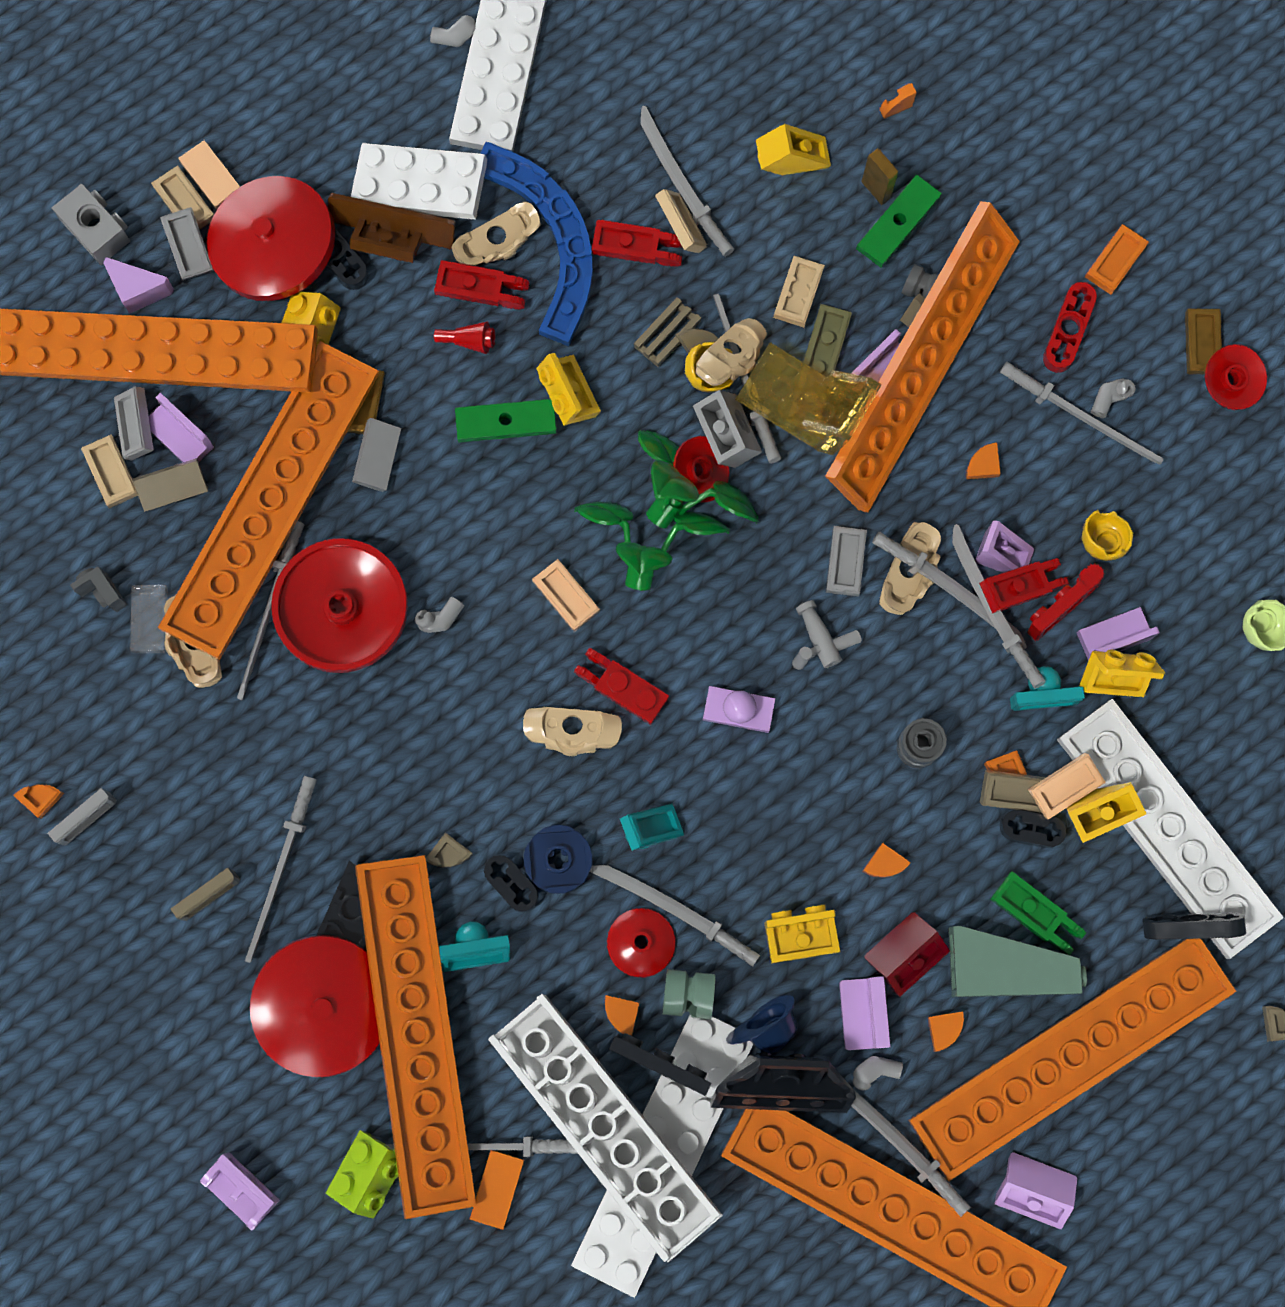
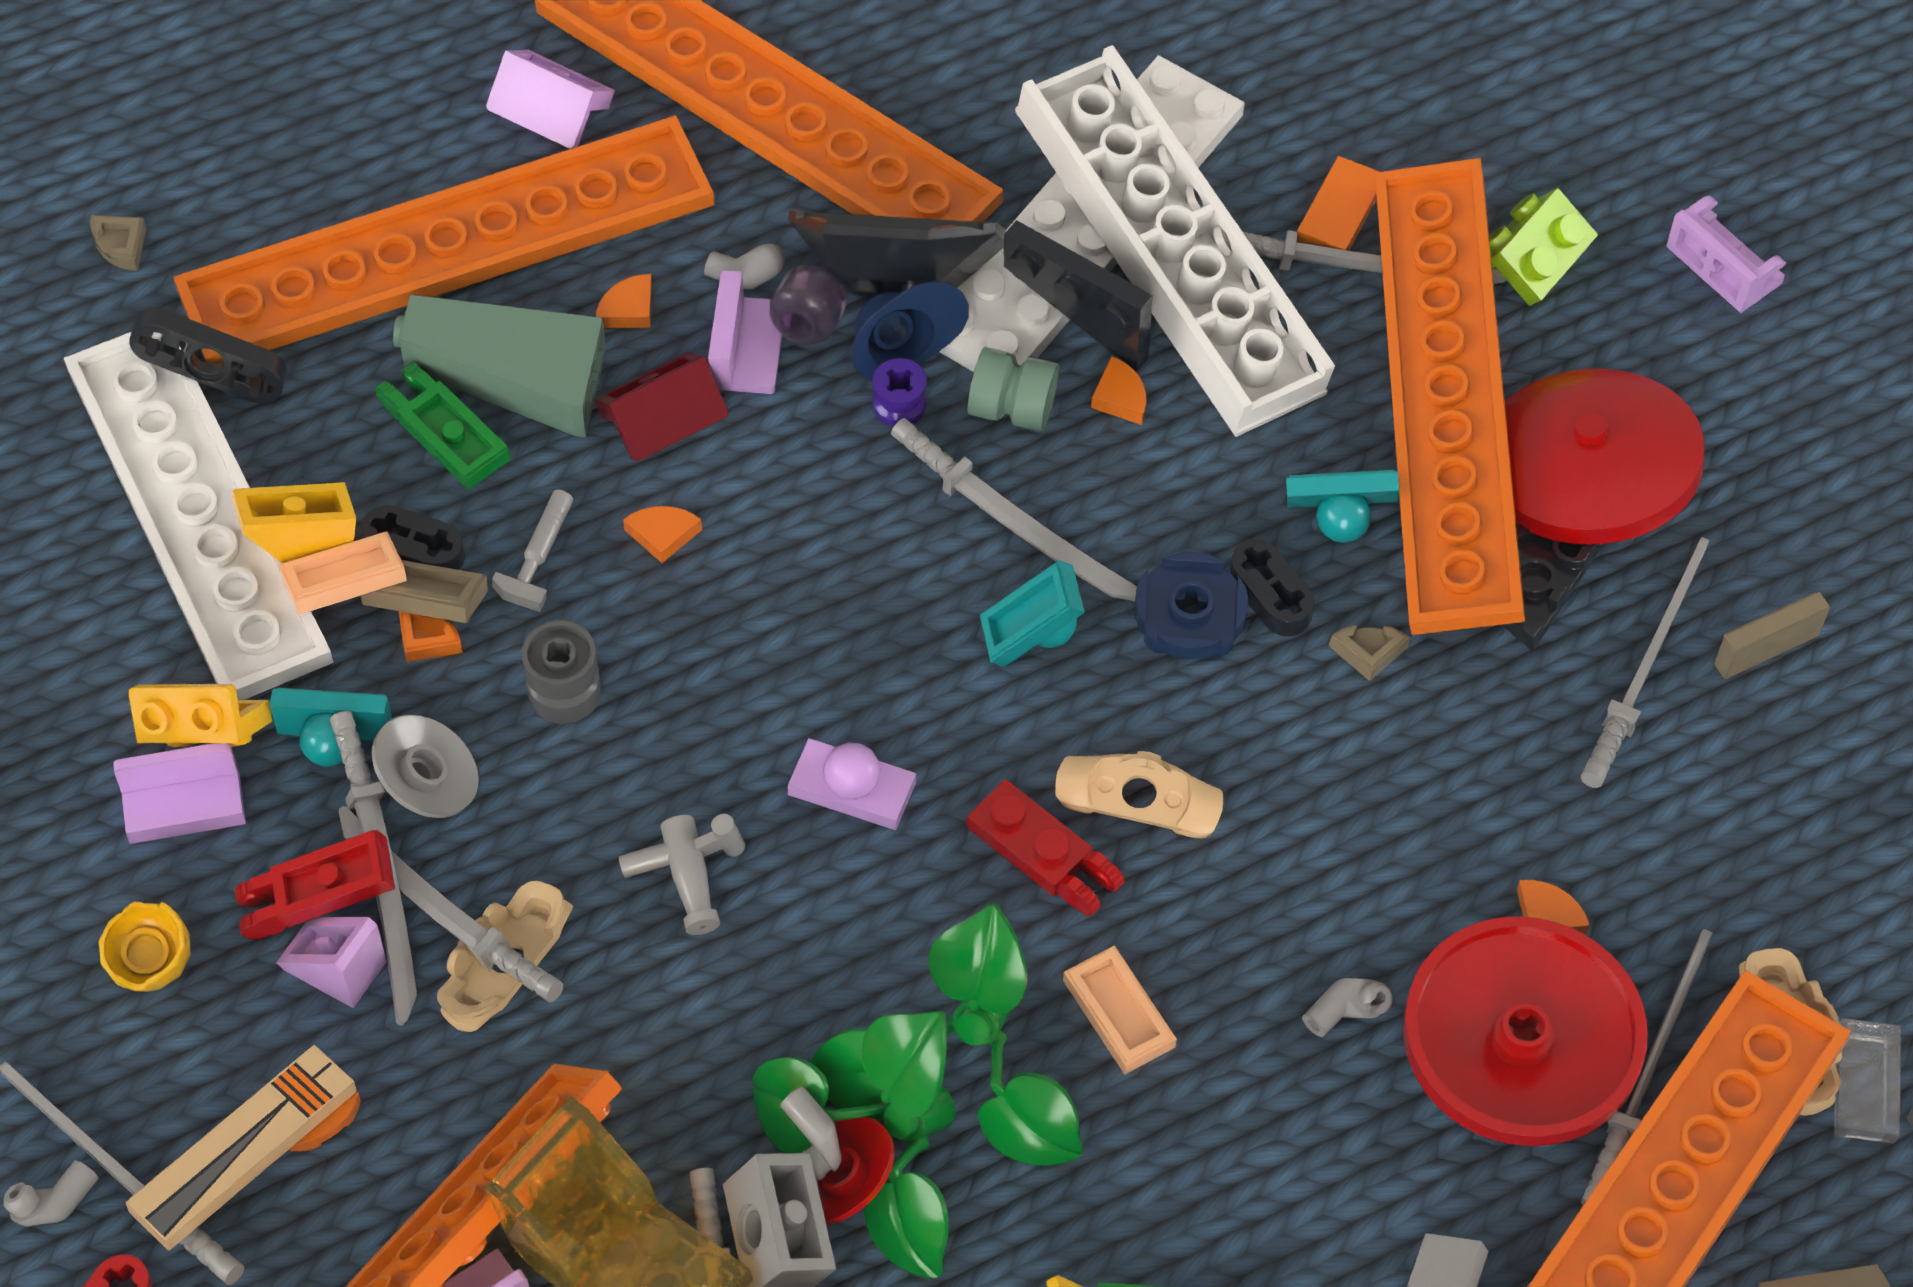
camera: 170 degrees left, 20 degrees down
(330, 693) = (1552, 904): none -> orange tile
(643, 961) = (1070, 502): red dish -> none
(714, 476) = (817, 1128): none -> light grey arm
(757, 990) = (899, 403): none -> dark purple wheel
(802, 935) = (819, 446): yellow bracket -> none
(830, 1037) = (808, 304): none -> clear purple head
(846, 561) = (612, 991): light grey tile -> none
(927, 1169) = (703, 132): light grey sword -> none
(957, 834) = (520, 590): none -> light grey piece
(970, 676) = (425, 766): none -> light grey dish
(1019, 429) = (241, 1147): none -> tan tile
(1066, 601) = (249, 855): red hinge -> none

